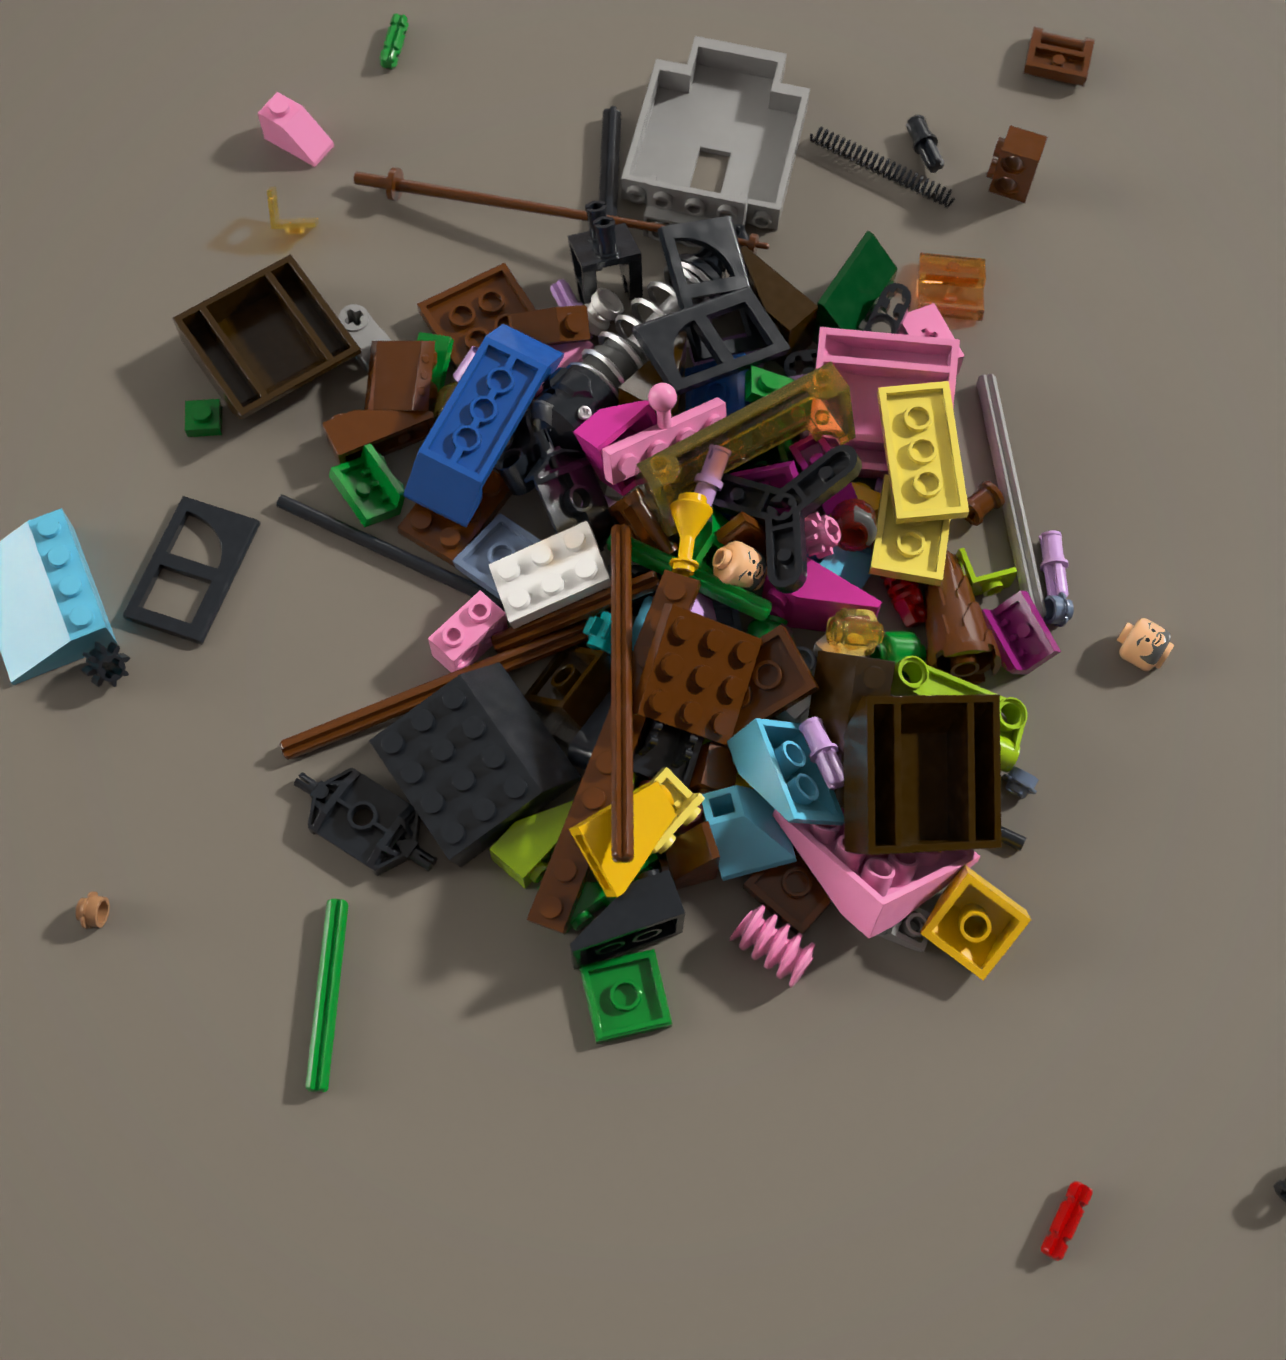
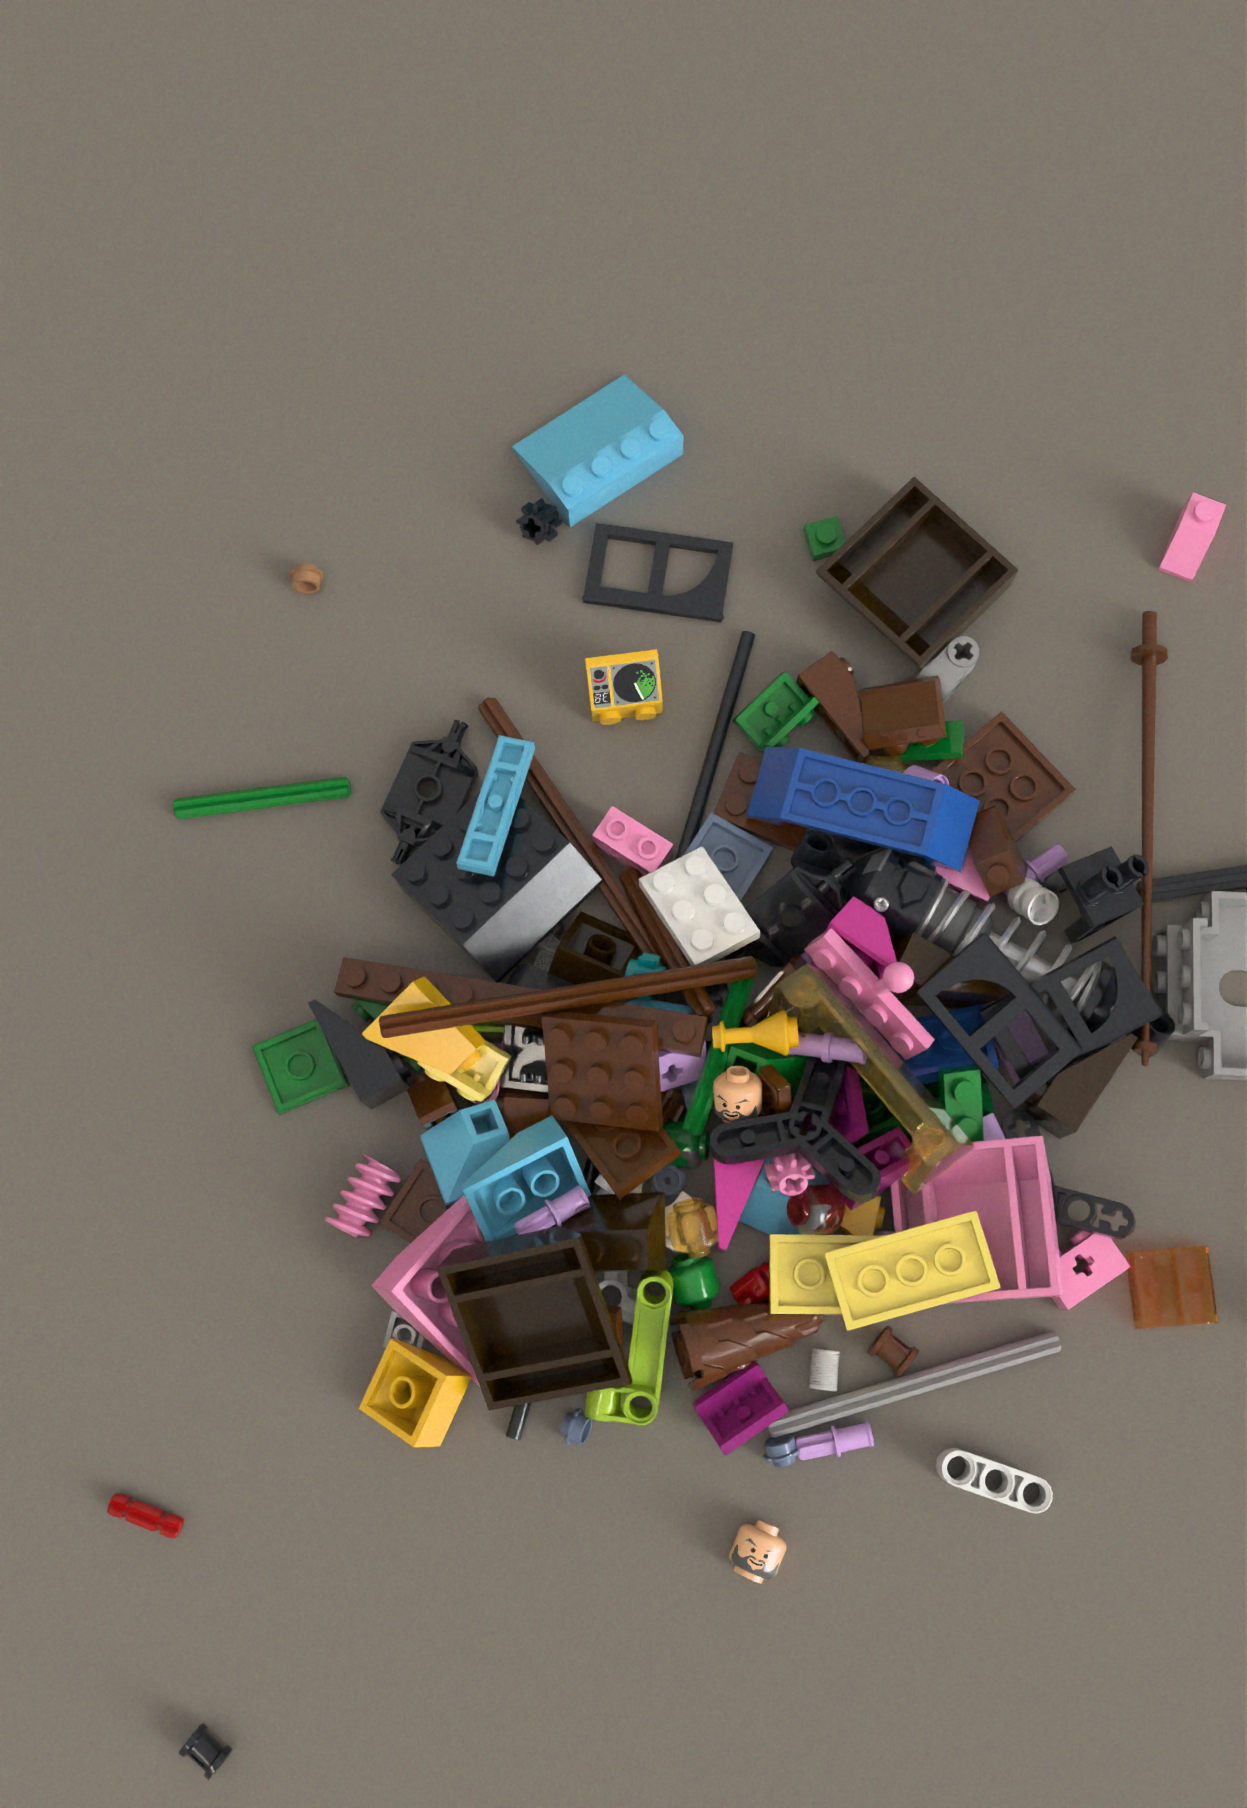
camera: 85 degrees right, 10 degrees up
(291, 226) = (1072, 562): clear yellow bracket -> none
(307, 611) = (624, 686): none -> slope
(405, 736) = (496, 806): none -> medium azure plate
(529, 844) = (424, 947): lime slope -> none
(856, 288) = (1120, 1175): dark green slope -> none
(986, 584) = (792, 1368): lime bracket -> none
(989, 565) = (827, 1369): none -> white piece
(1103, 433) = (1012, 1480): none -> white beam

